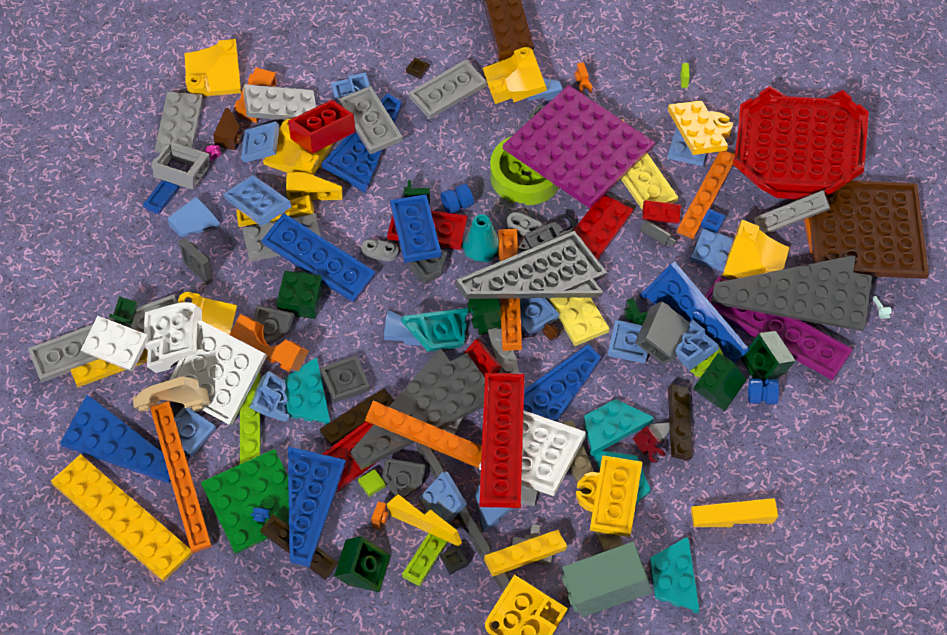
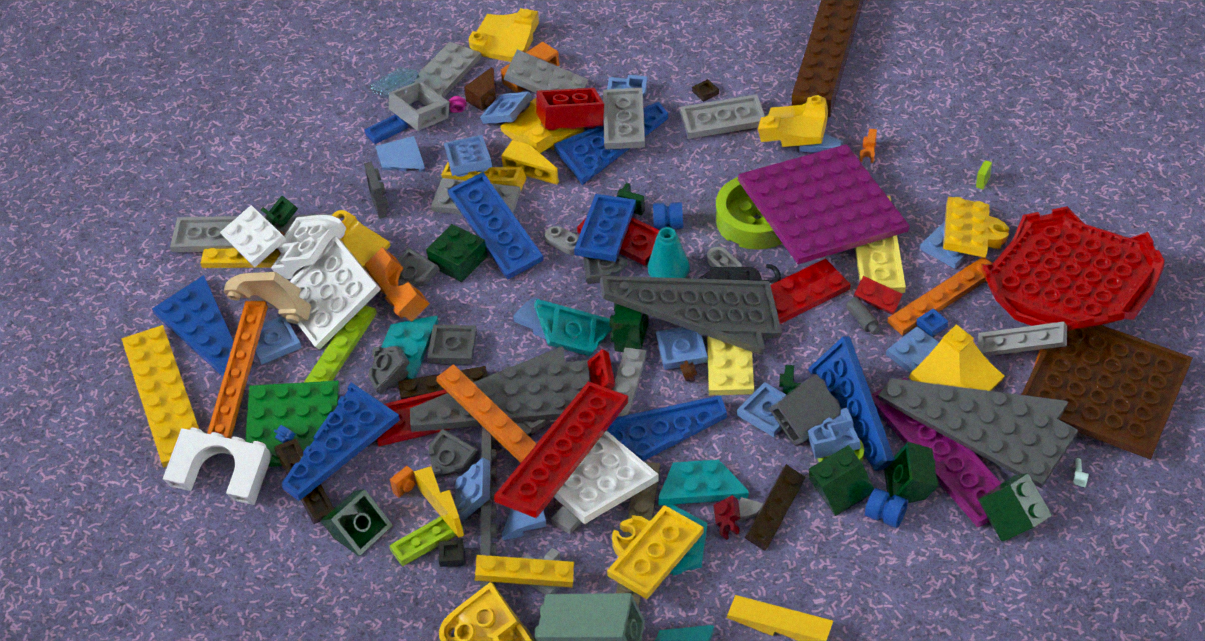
camera: 30 degrees right, 10 degrees down
(144, 148) = (395, 80): none -> clear light blue plate
(189, 555) = (195, 447): none -> white arch
(271, 397) = (368, 334): medium blue slope -> none
(305, 420) = (388, 367): none -> dark grey plate
(371, 483) = (417, 450): lime tile -> none
(510, 306) = (658, 330): orange plate -> none
(856, 355) = (1014, 506): none -> dark green slope

